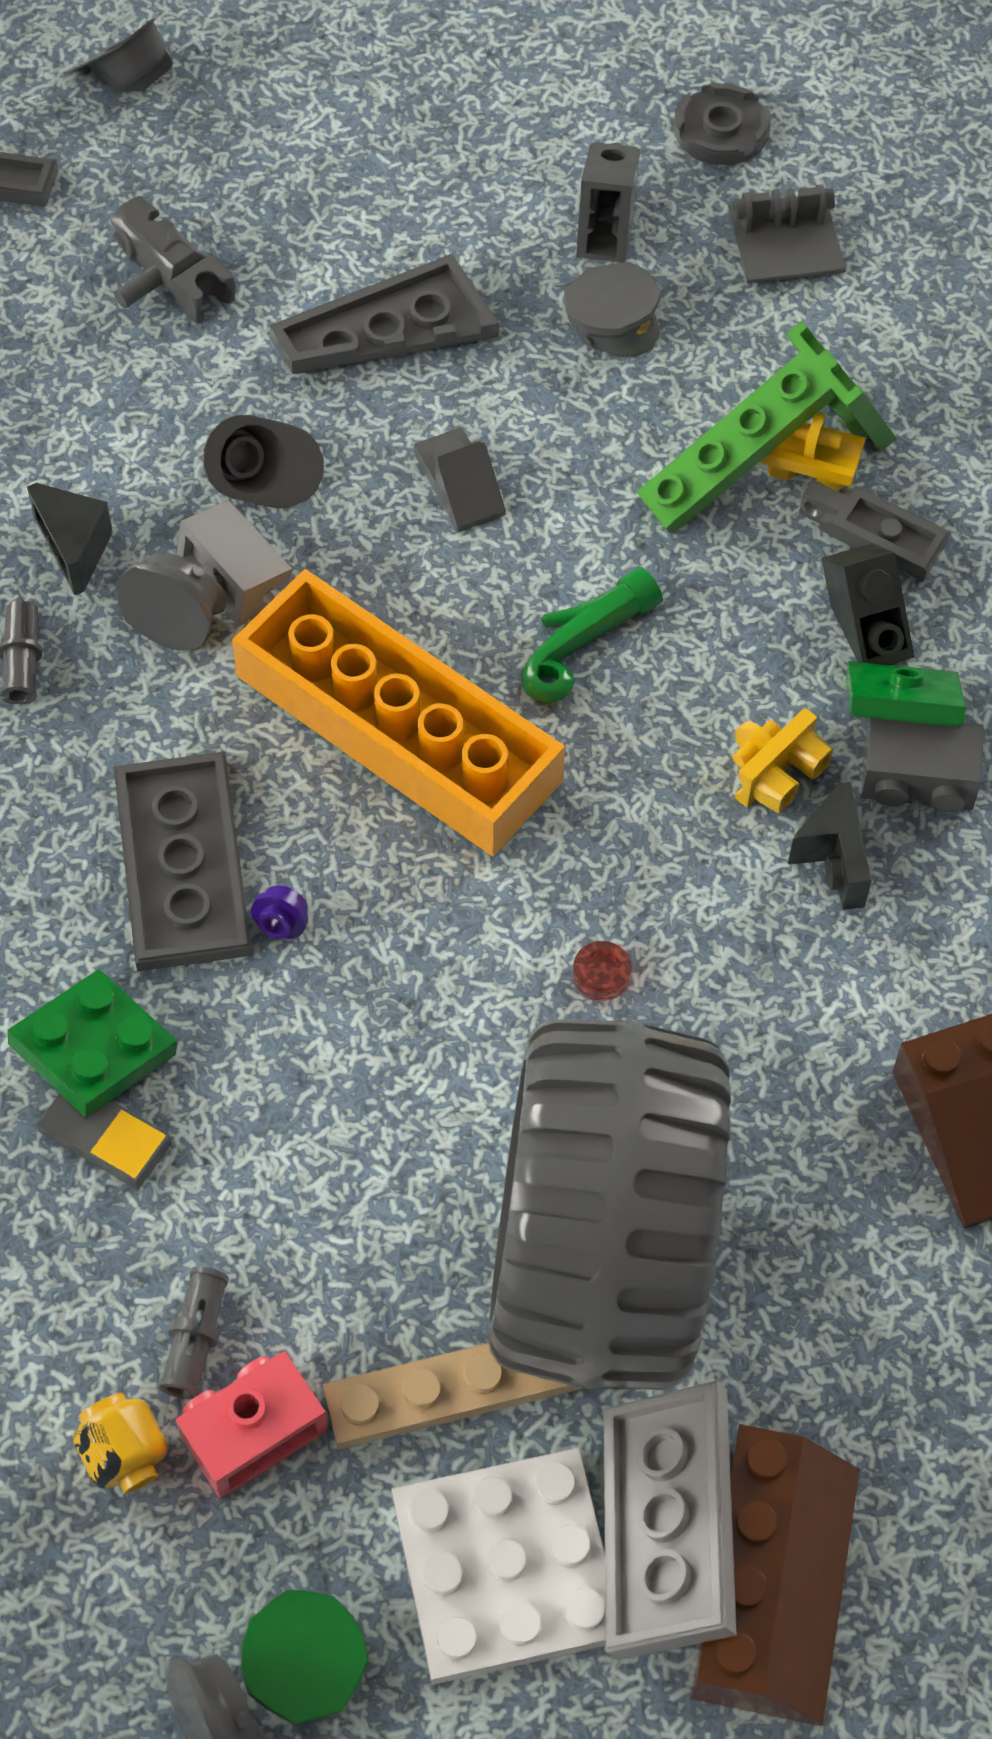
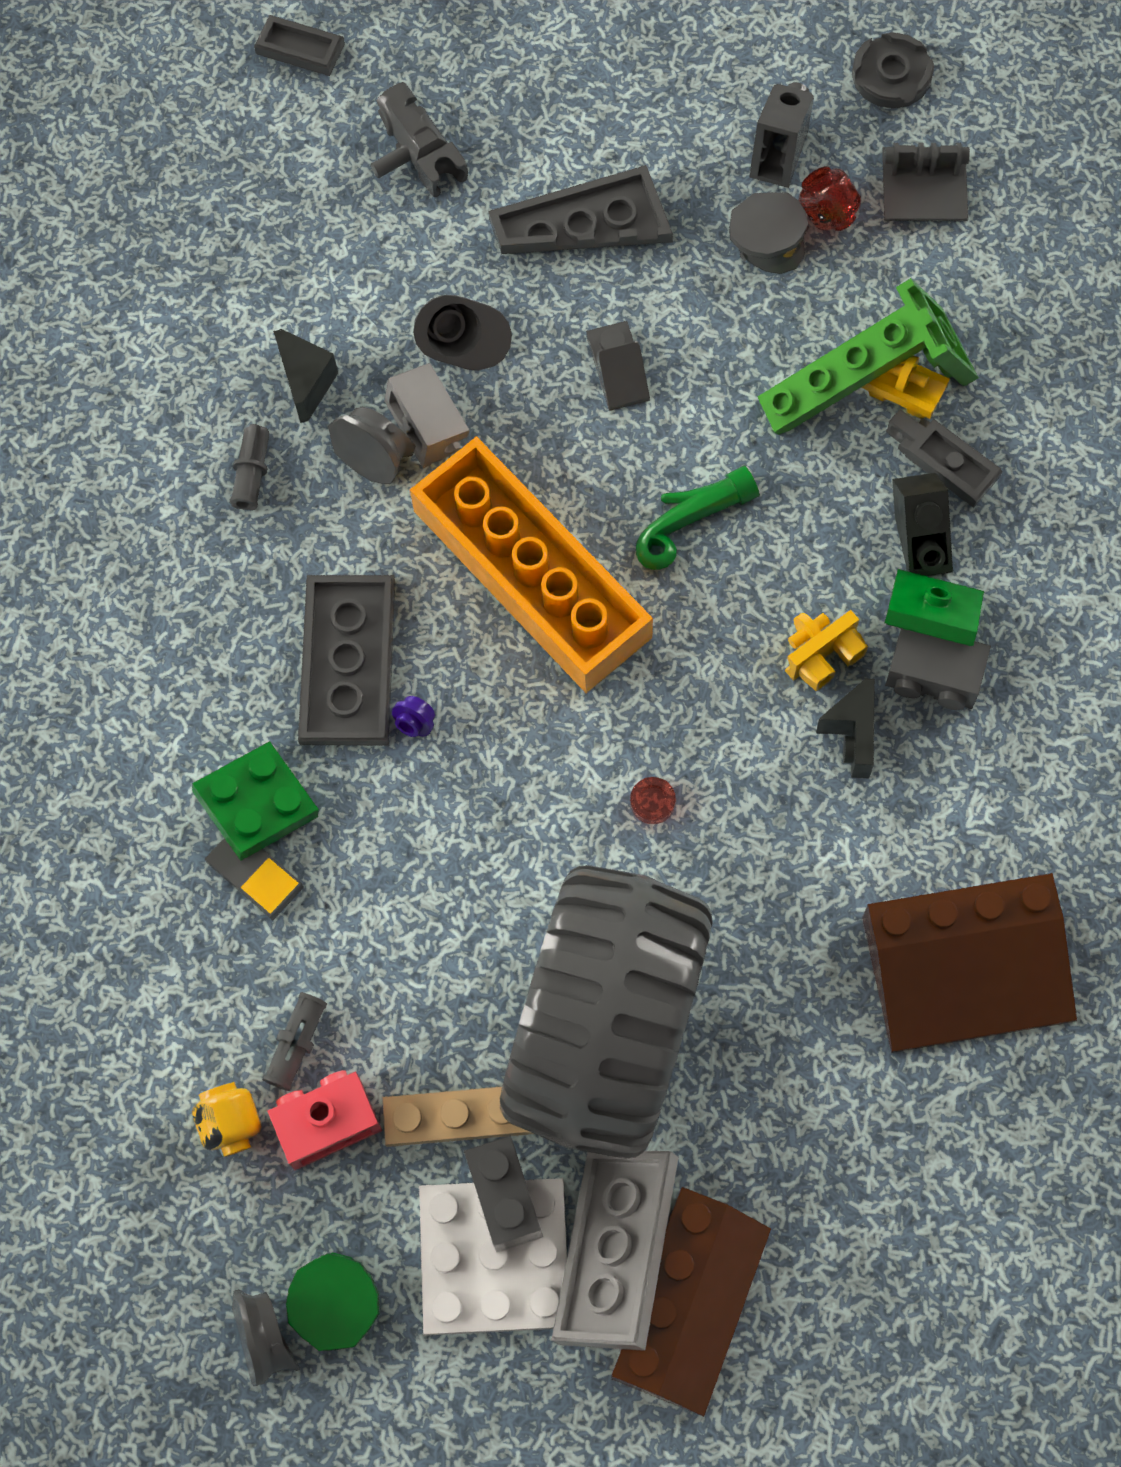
camera: 15 degrees right, 10 degrees up
(509, 1471) = (503, 1194): none -> dark grey brick
(680, 262) = (830, 199): none -> clear red head

